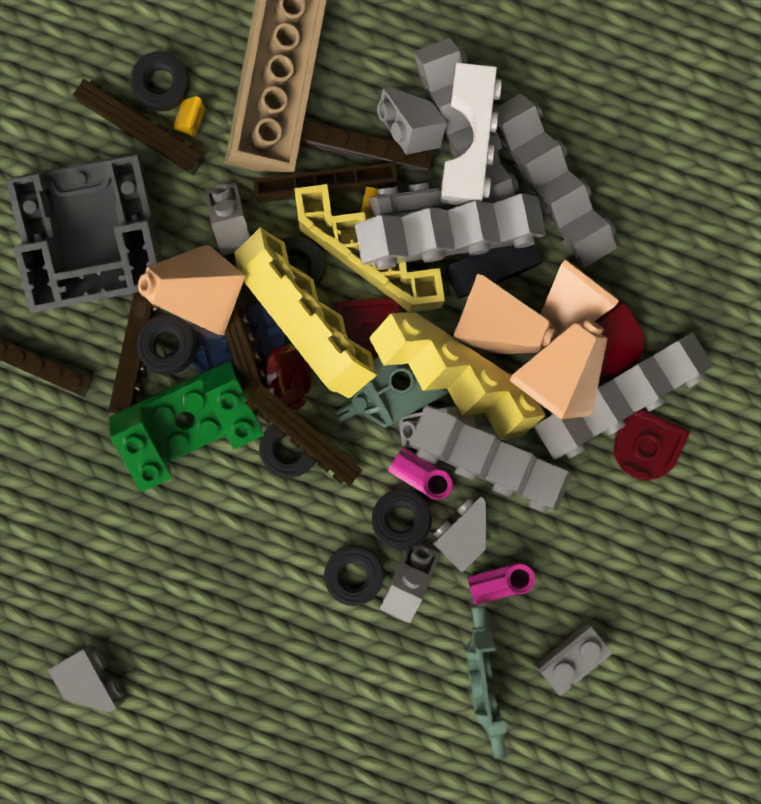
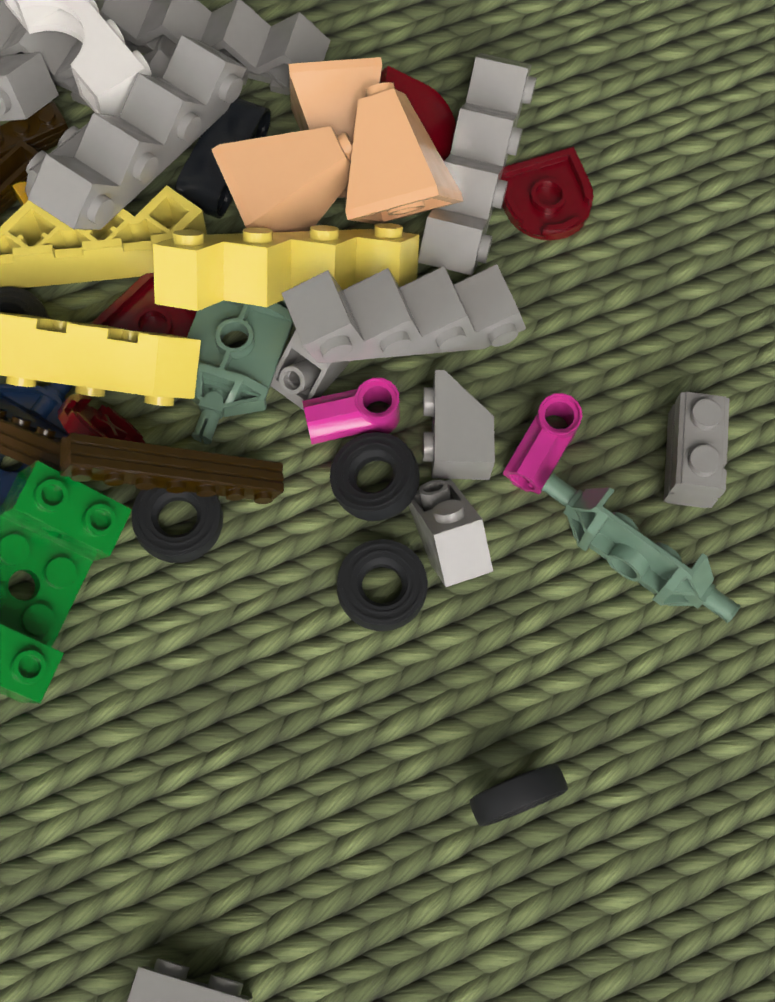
camera: 45 degrees left, 15 degrees down
(316, 737) = (518, 794): none -> black tyre

